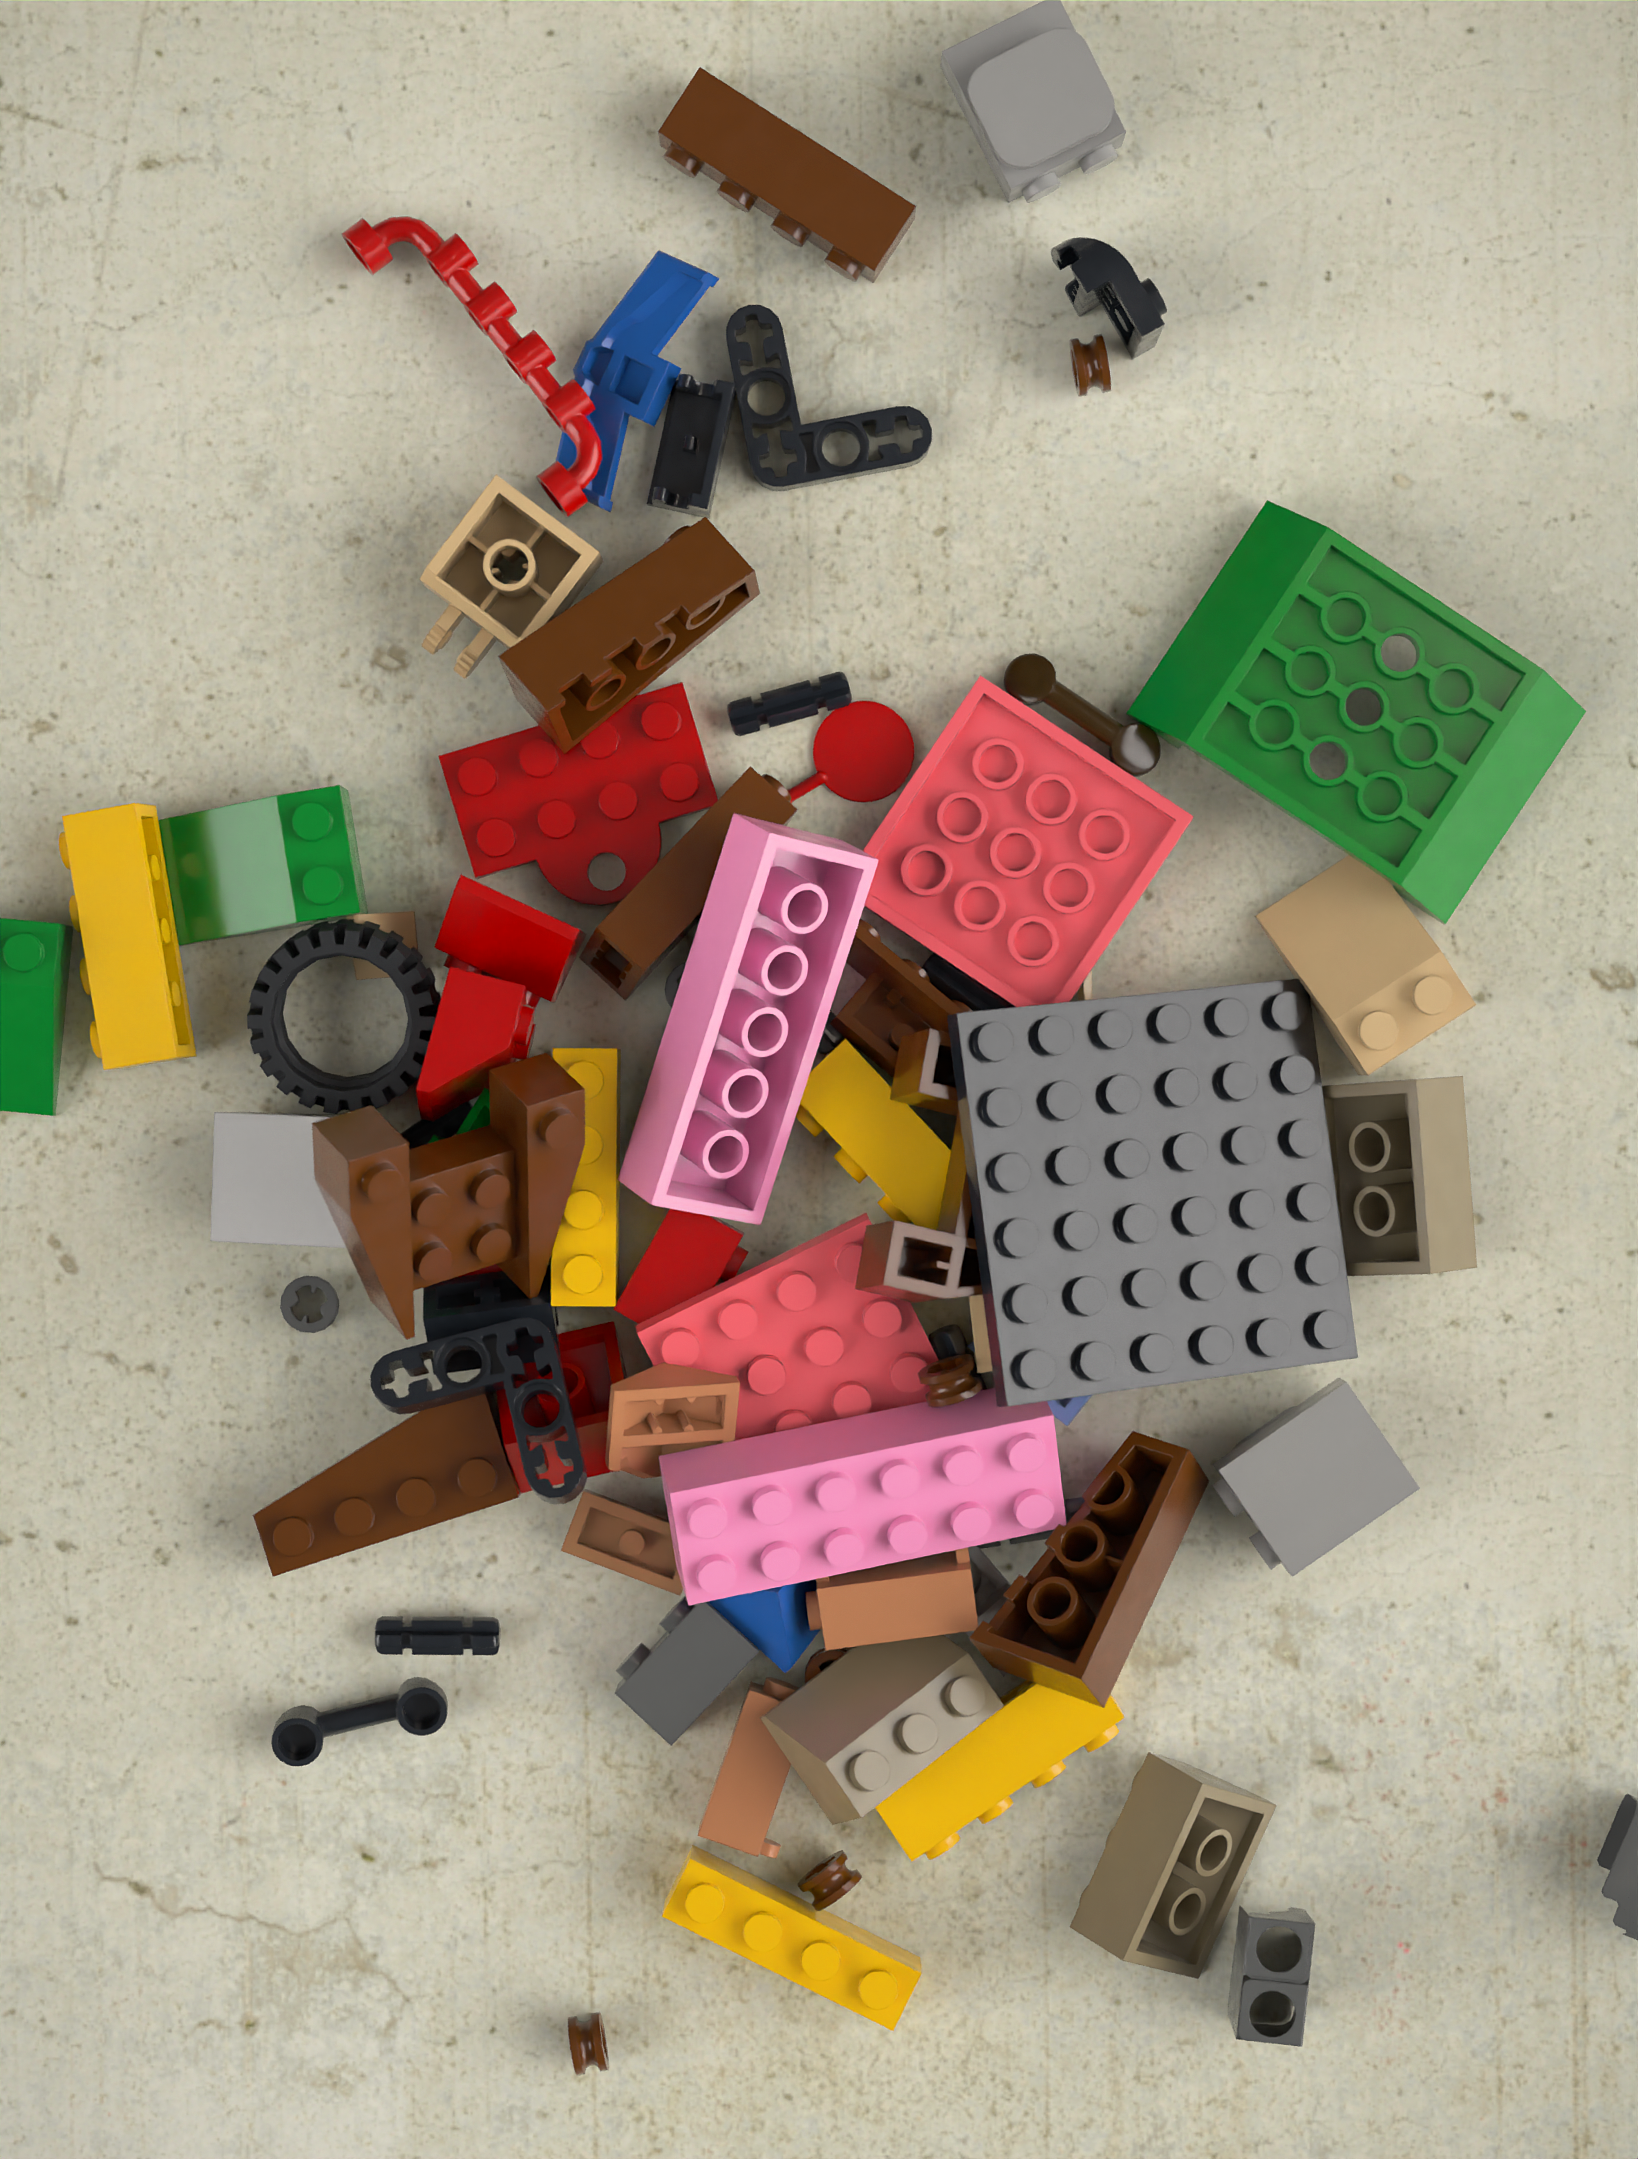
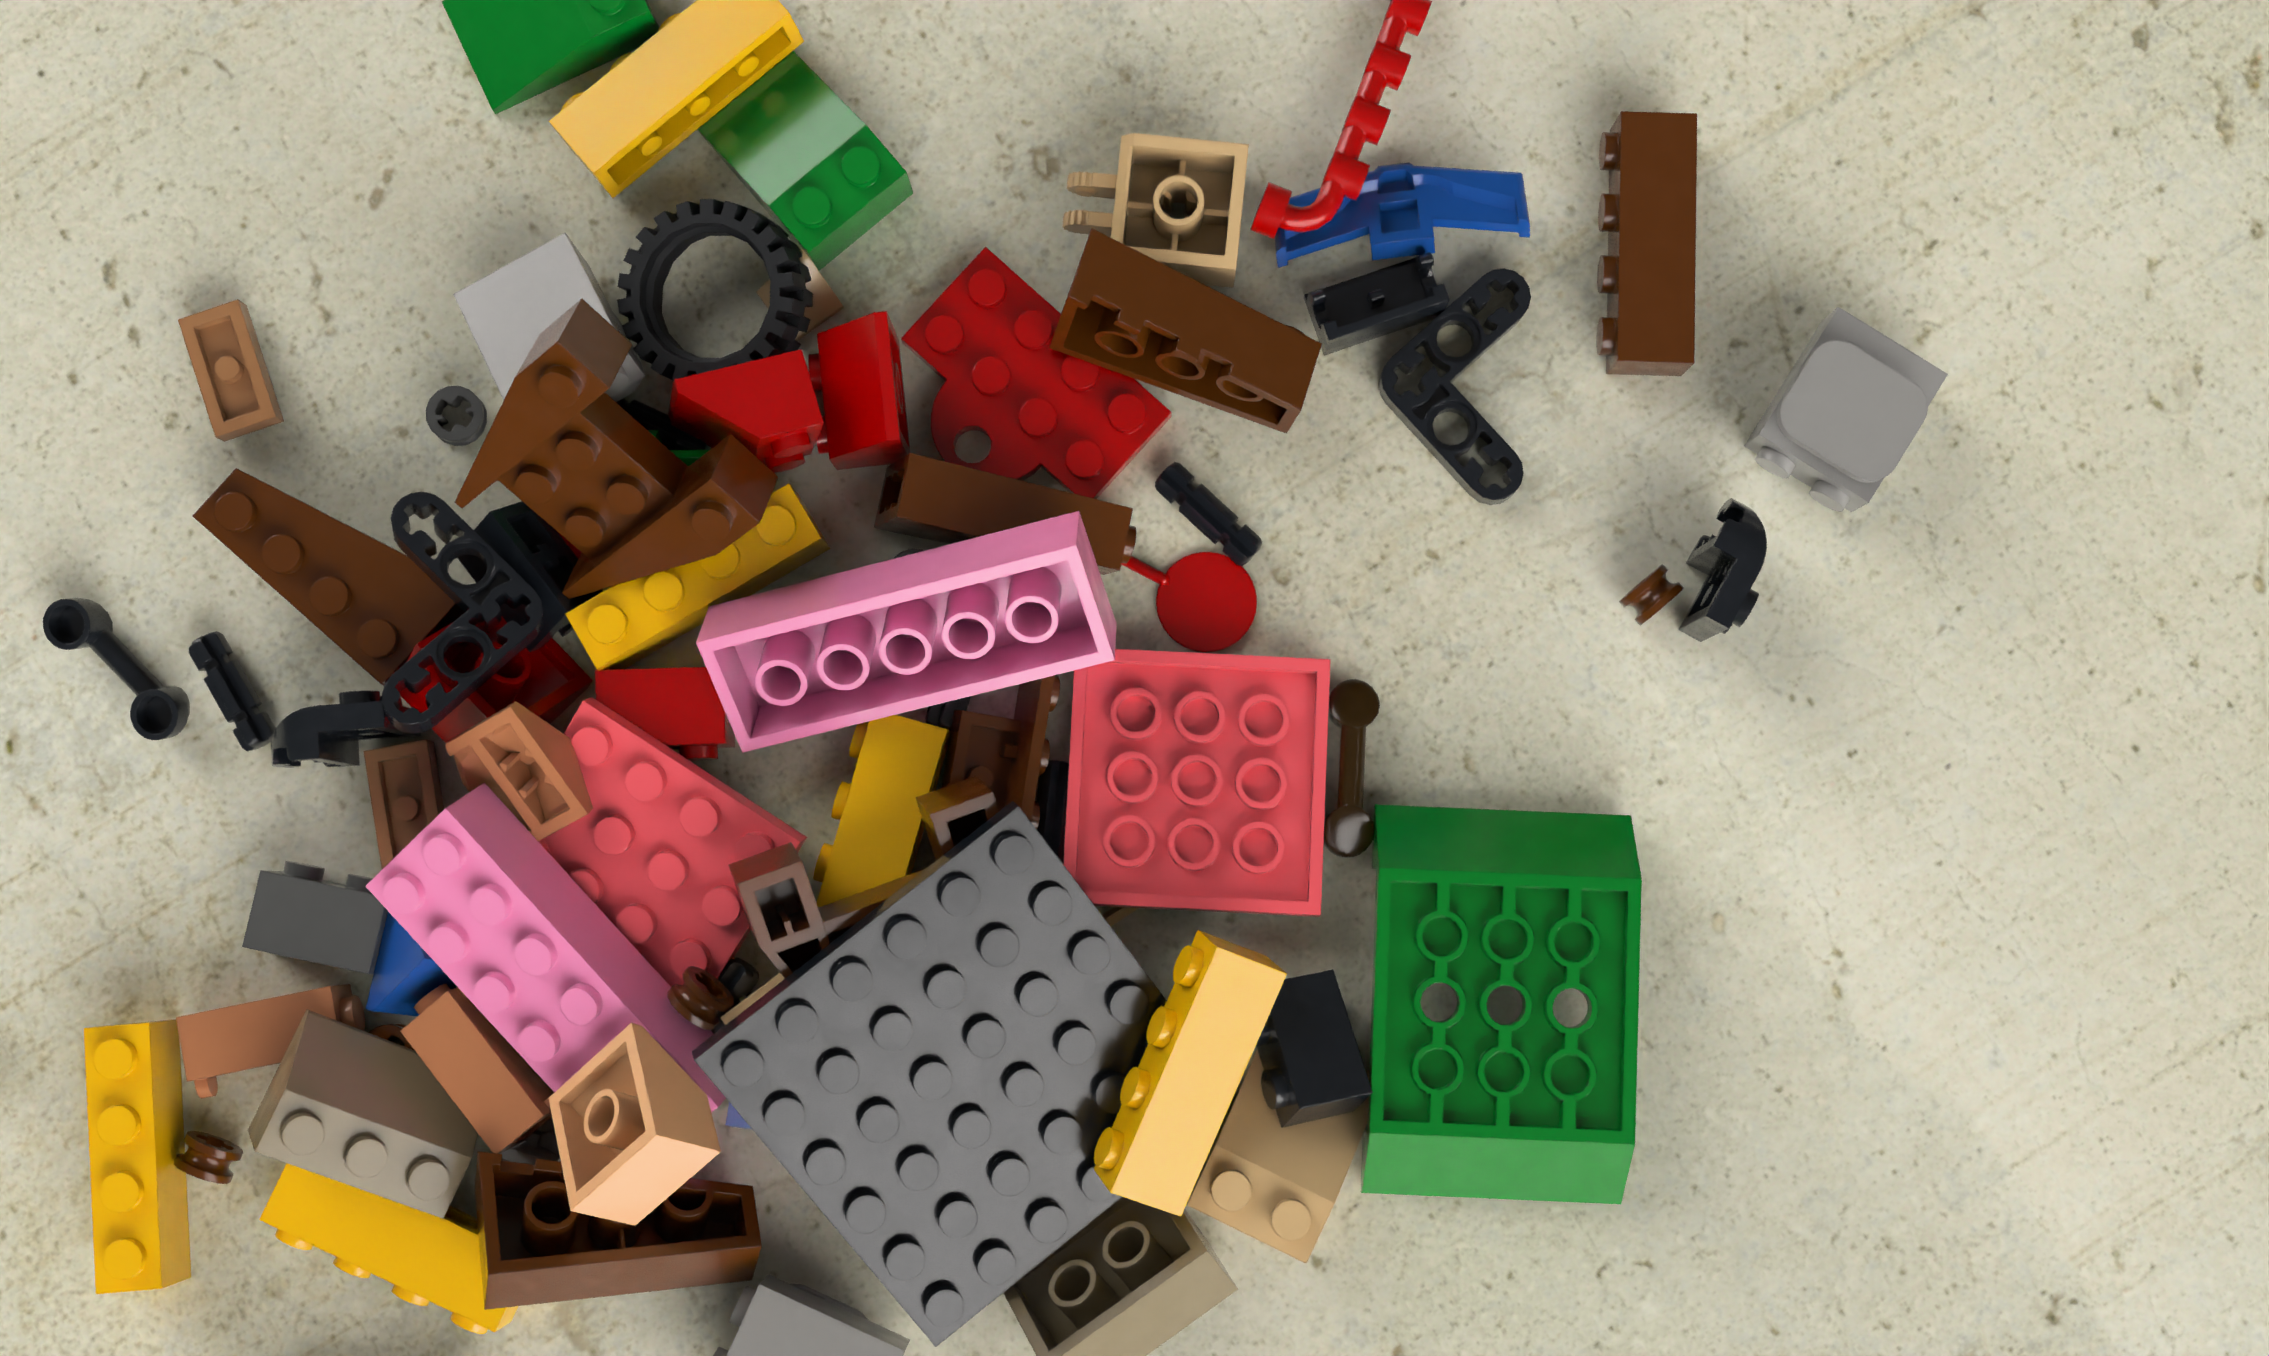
camera: 60 degrees right, 5 degrees down
(153, 1476) = (230, 370): none -> medium nougat plate
(530, 1573) = (332, 731): none -> black slope
(1028, 1496) = (630, 1129): none -> light nougat slope
(1259, 1006) = (1187, 1072): none -> yellow brick
(1298, 897) = (1311, 1053): none -> black brick

